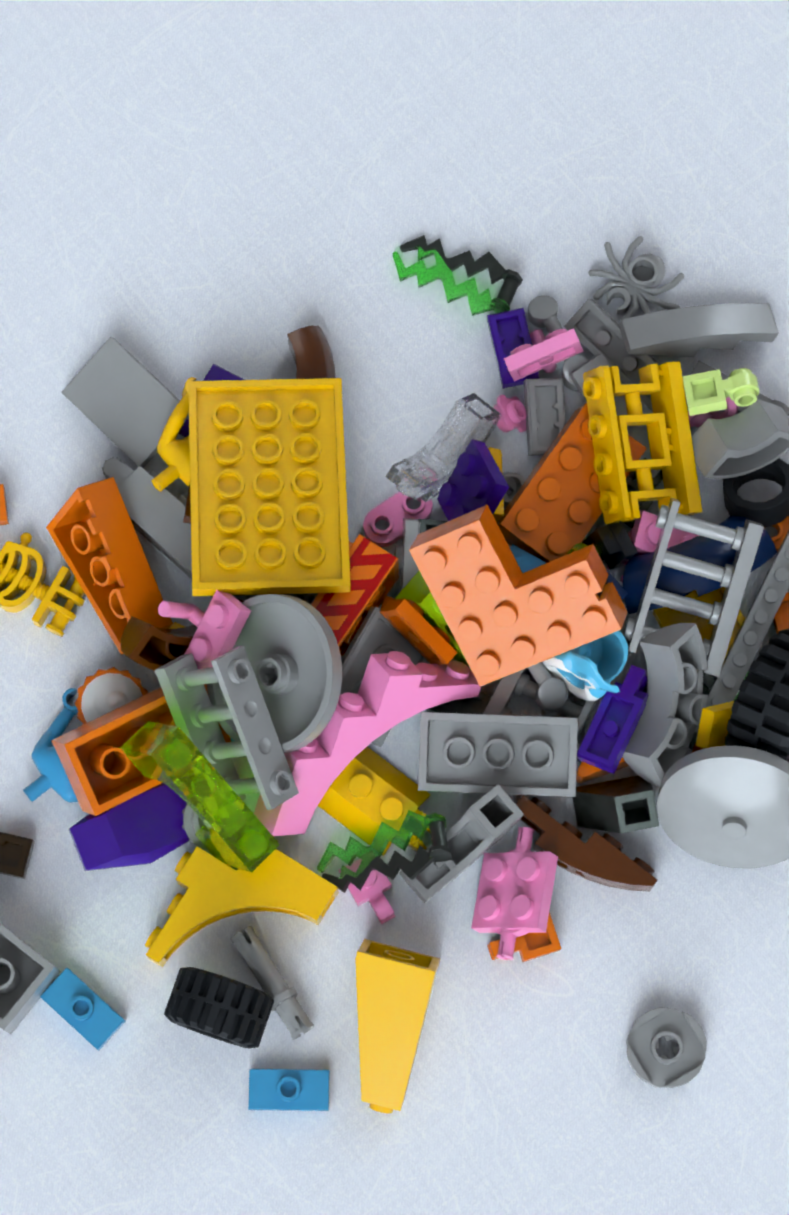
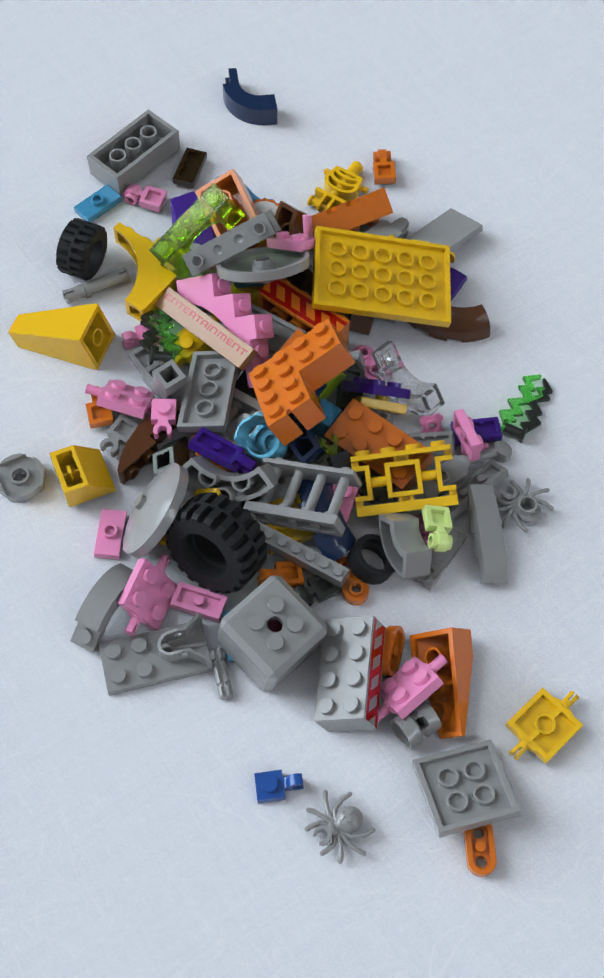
camera: 90 degrees right, 15 degrees down
(68, 911) = (150, 198): none -> bright pink plate
(288, 1090) = (35, 291): dark azure plate -> none
(377, 773) = (206, 329): none -> tile
(545, 823) = (163, 416): none -> bright pink plate
(570, 896) = (119, 434): none -> light grey plate
(657, 944) = (81, 473): none -> yellow slope
(749, 890) = (110, 534): none -> bright pink plate

